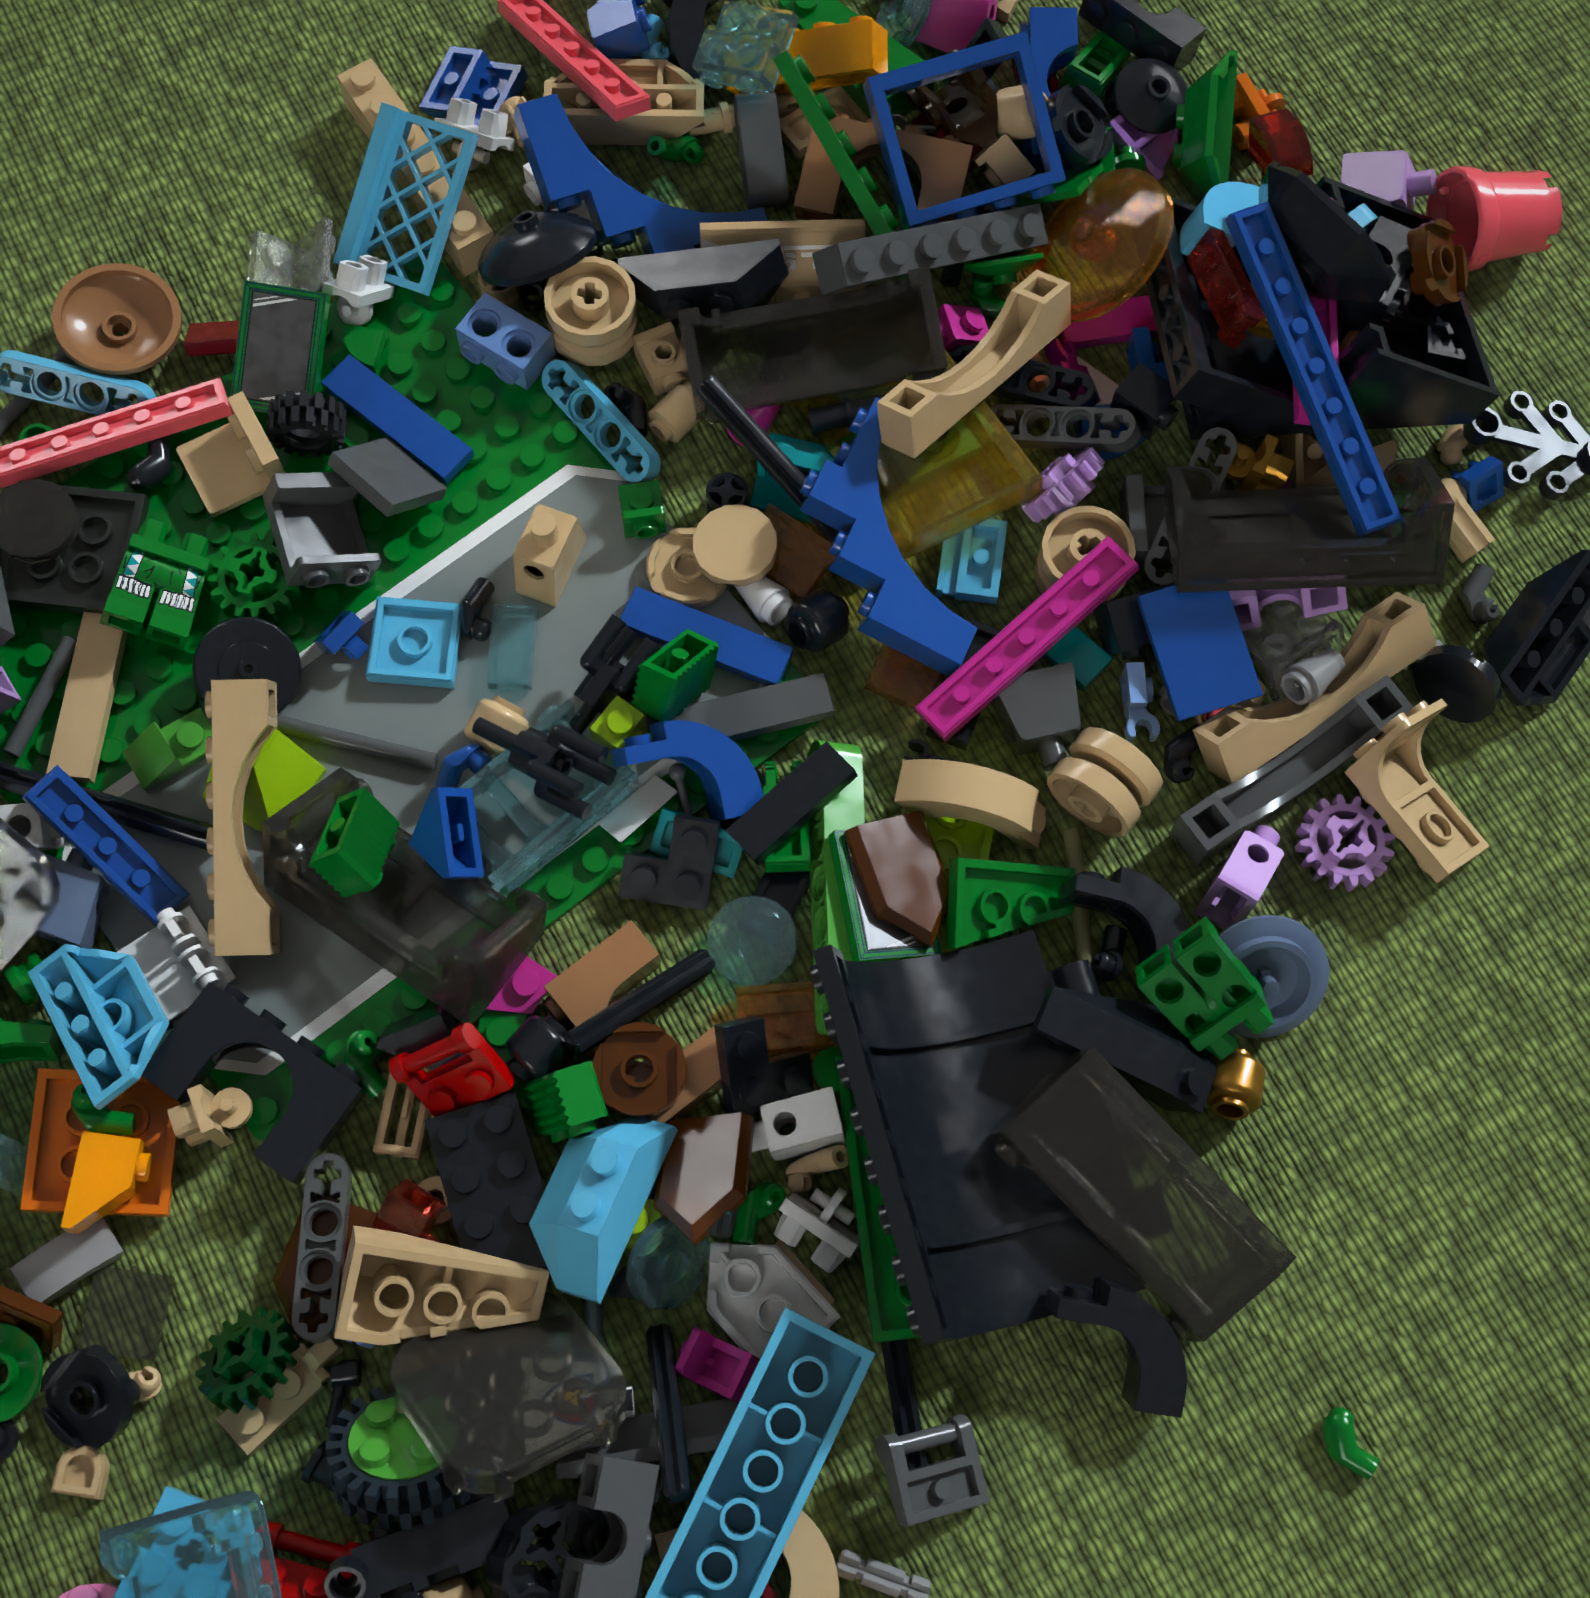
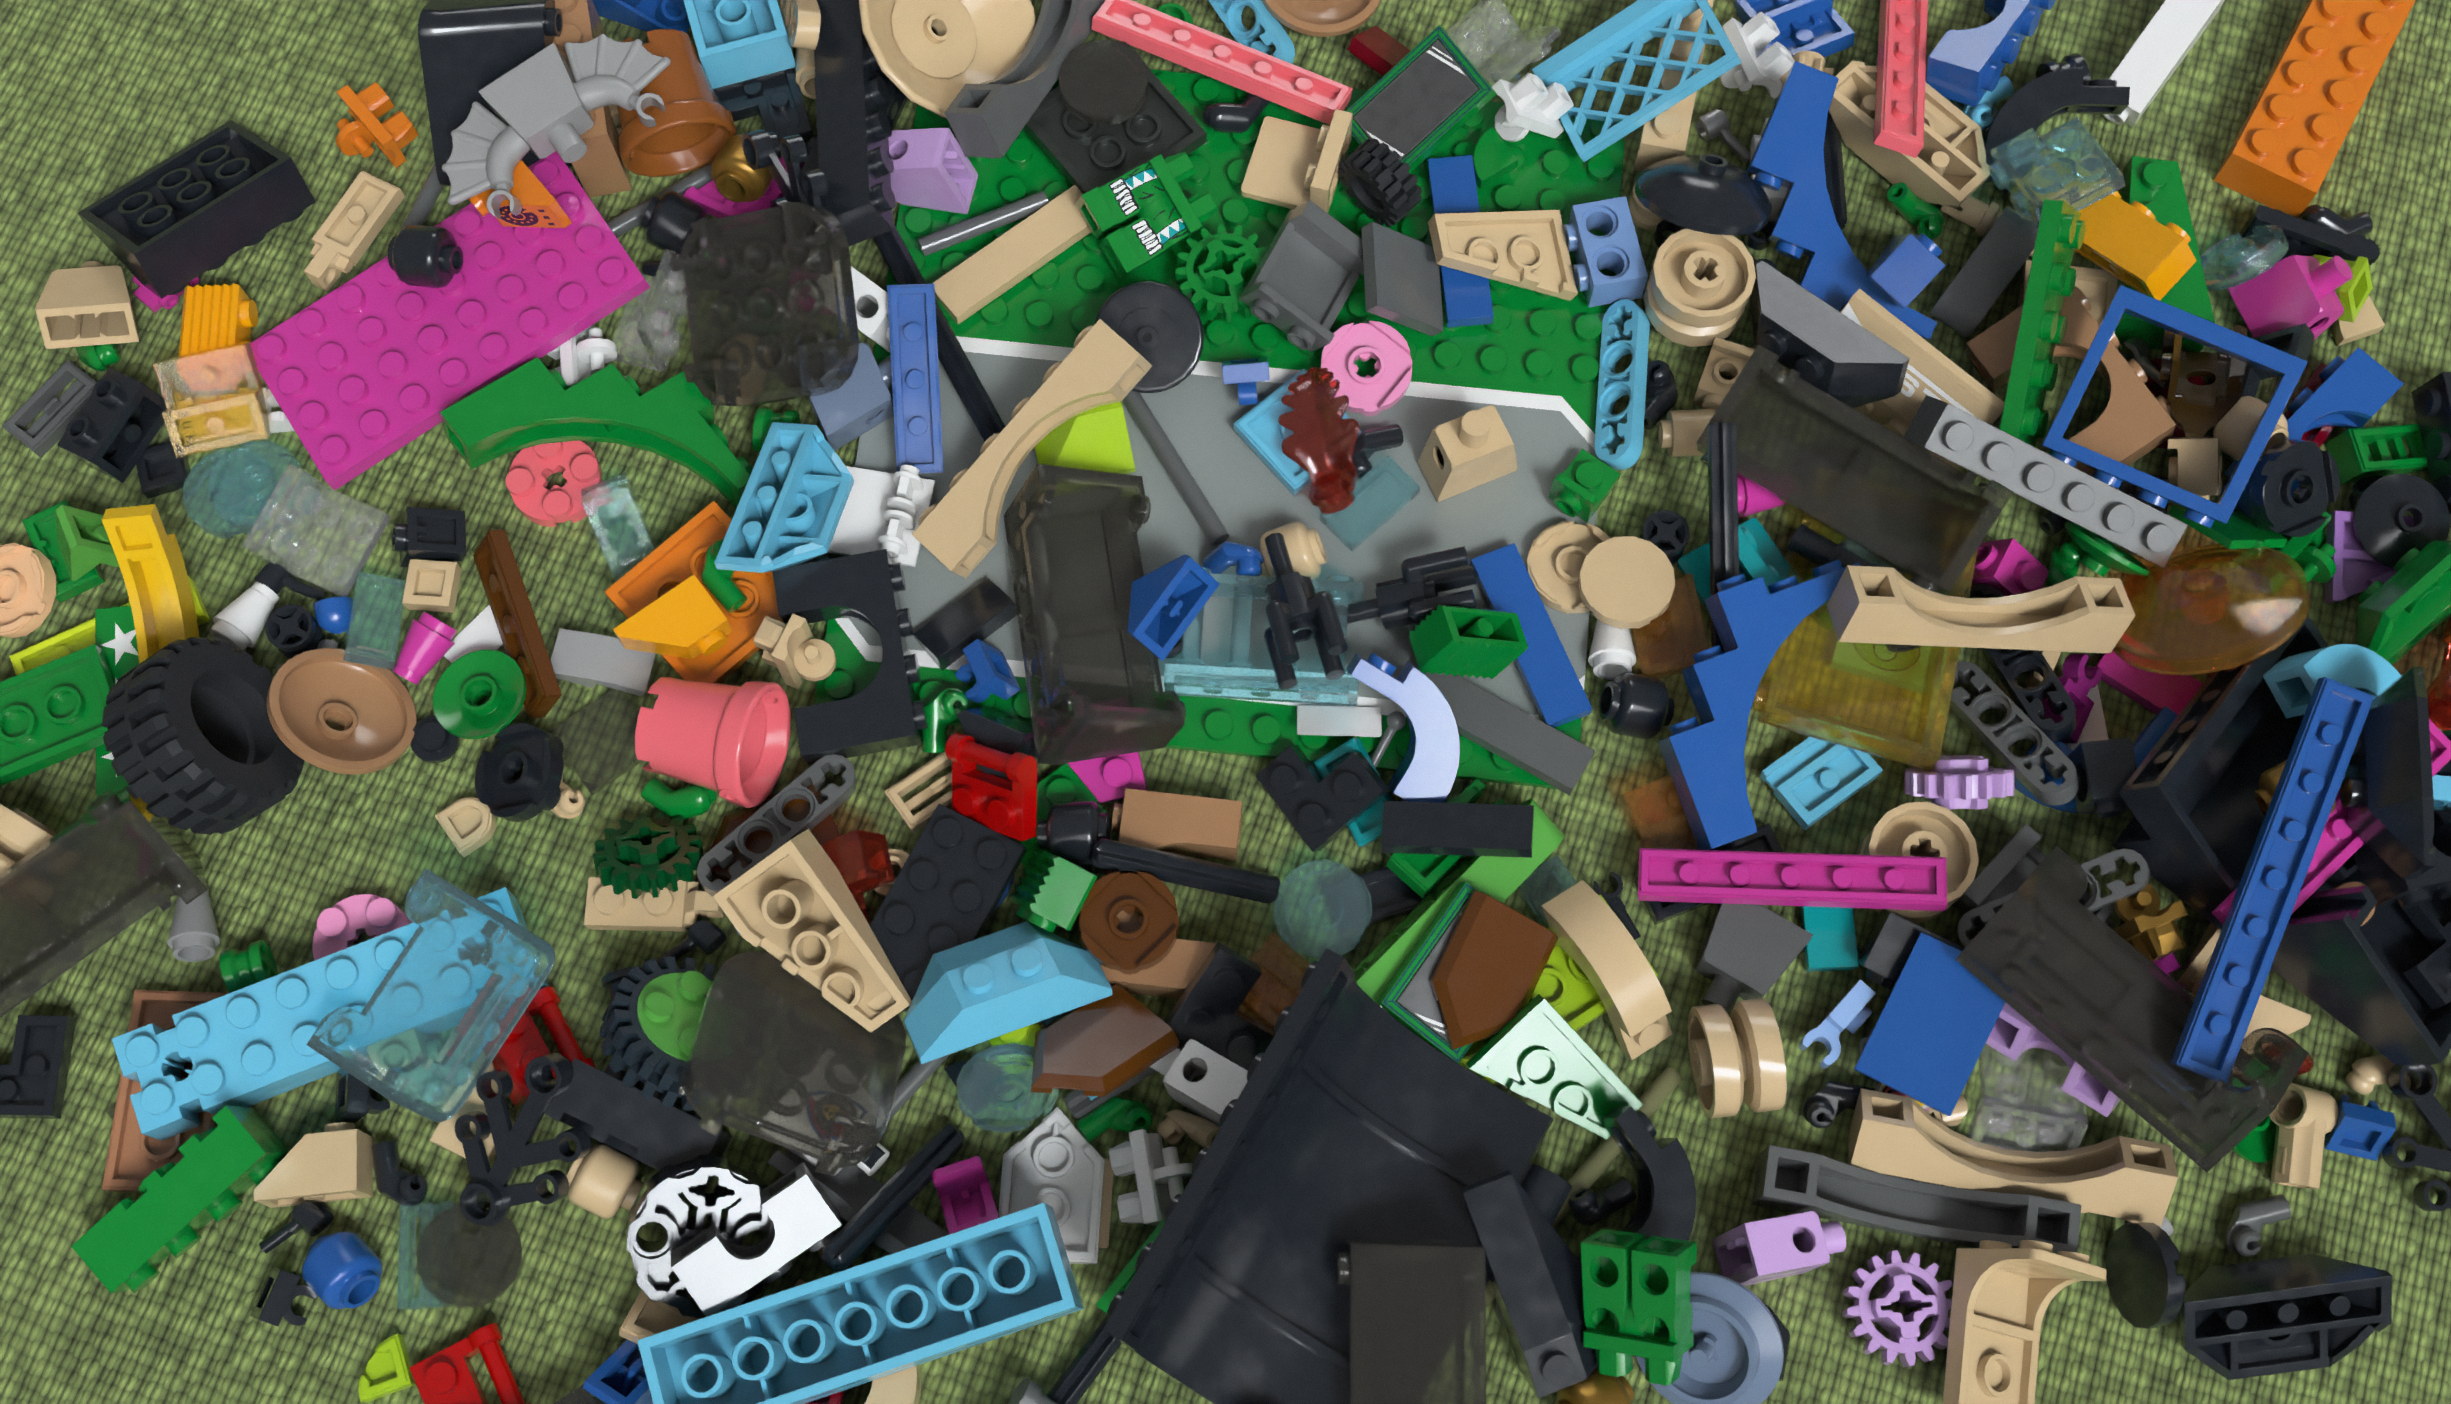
camera: 50 degrees right, 0 degrees up
(169, 750) = (1029, 346): bright green slope -> none
(213, 1229) = (717, 736): none -> coral piece
(233, 1299) = (683, 802): none -> green arm
(313, 982) = (968, 619): none -> black slope
(355, 843) = (1090, 544): green brick -> none
(368, 997) = (990, 670): none -> blue tile
(437, 394) = (1507, 247): none -> tan wing
(437, 575) = (1393, 366): none -> bright pink plate
(439, 630) = (1321, 438): none -> clear red plant
(491, 199) = (1717, 124): none -> flat silver hand
(618, 722) = (1386, 638): lime brick -> none
(713, 184) = (1906, 267): none -> blue slope
(880, 789) = (1545, 884): none -> clear light blue tile
(1225, 287) = (2265, 740): clear red plate -> none
(1310, 677) = (2014, 1143): light grey cone -> none

